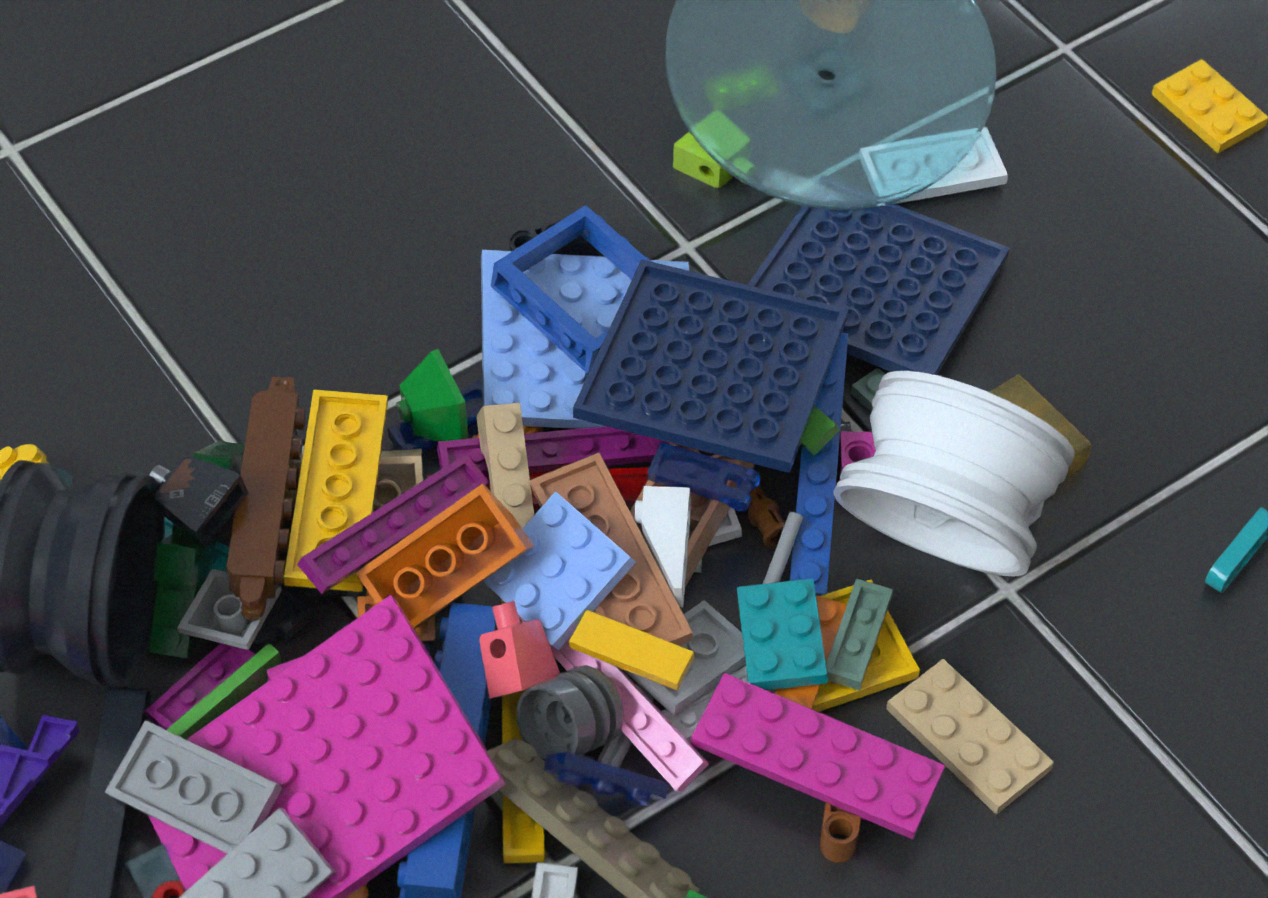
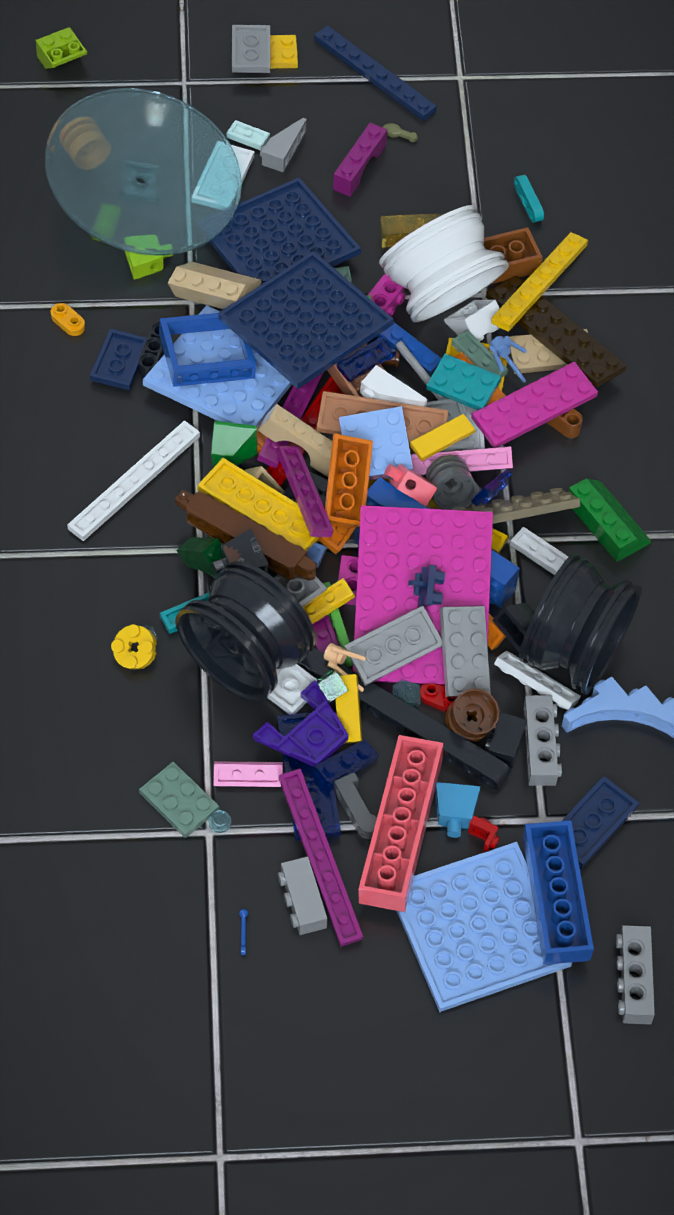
camera: 60 degrees left, 5 degrees up
(59, 797) = (349, 709): none -> yellow tile
(63, 696) = (289, 688): none -> white plate
(71, 744) = (332, 685): none -> panel
(133, 718) = (337, 654): none -> light nougat plant
(227, 663) = (329, 600): none -> yellow tile
(311, 335) = (133, 480): none -> white plate
(327, 760) = (424, 586): none -> dark blue hips
(331, 610) = (316, 553): none -> medium blue plate
(496, 213) = (118, 359): none -> dark blue plate
(542, 131) = (66, 318): none -> light orange plate
(717, 236) = (210, 285): none -> tan slope
(893, 655) = (501, 348): none -> medium blue plant
(935, 599) = (475, 318): none -> white slope
(1001, 721) = (562, 336): none -> dark brown plate
(1034, 156) = (248, 135): none -> light aqua plate
(1050, 203) = (282, 146): none -> light grey slope
(1070, 300) = (350, 170): none -> magenta arch
(1080, 642) = (539, 282): none -> yellow plate
(1092, 573) = (518, 250): none -> dark orange brick
(1181, 75) = (251, 48): none -> light grey plate
(1213, 319) = (395, 131): none -> olive piece

